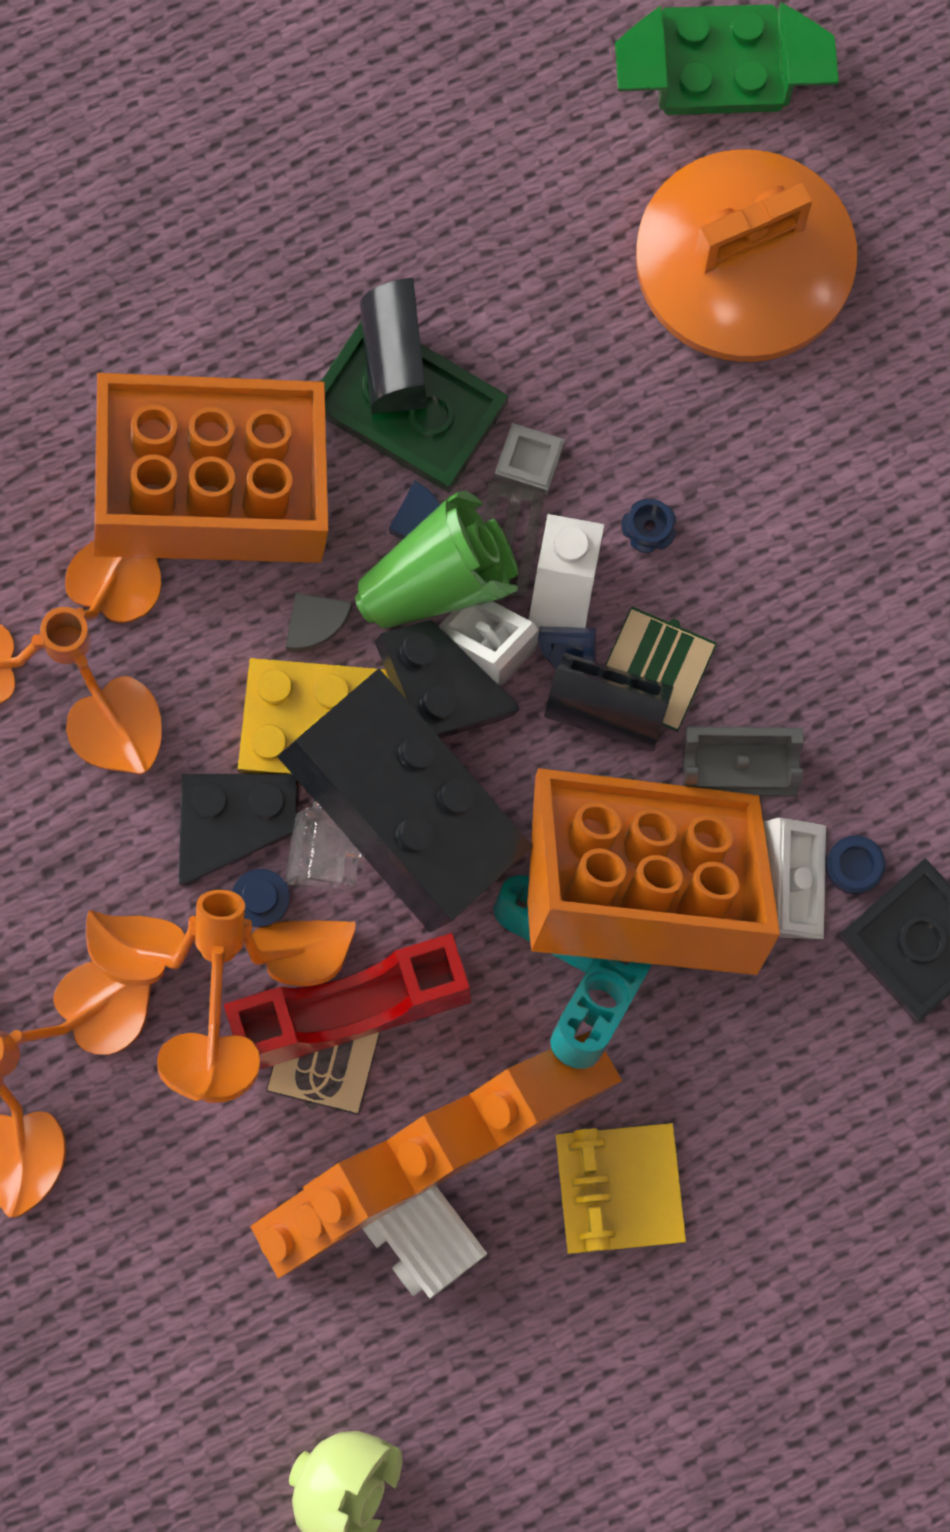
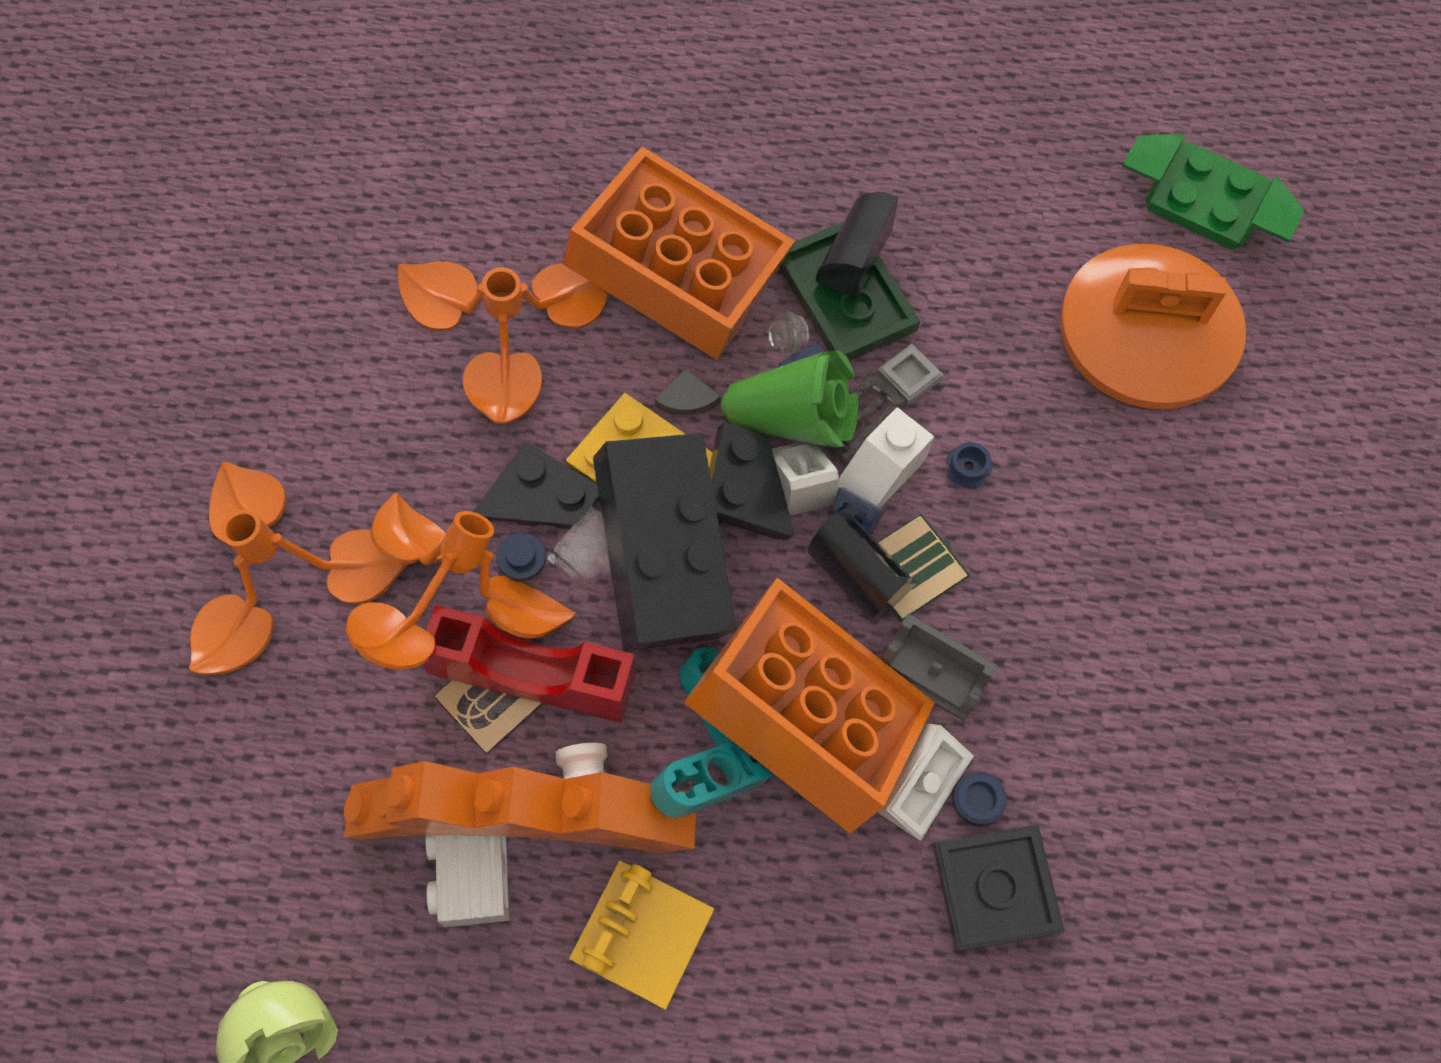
camera: 30 degrees right, 10 degrees down
(379, 490) = (788, 333): none -> clear plate
(465, 1068) = (582, 759): none -> white wheel

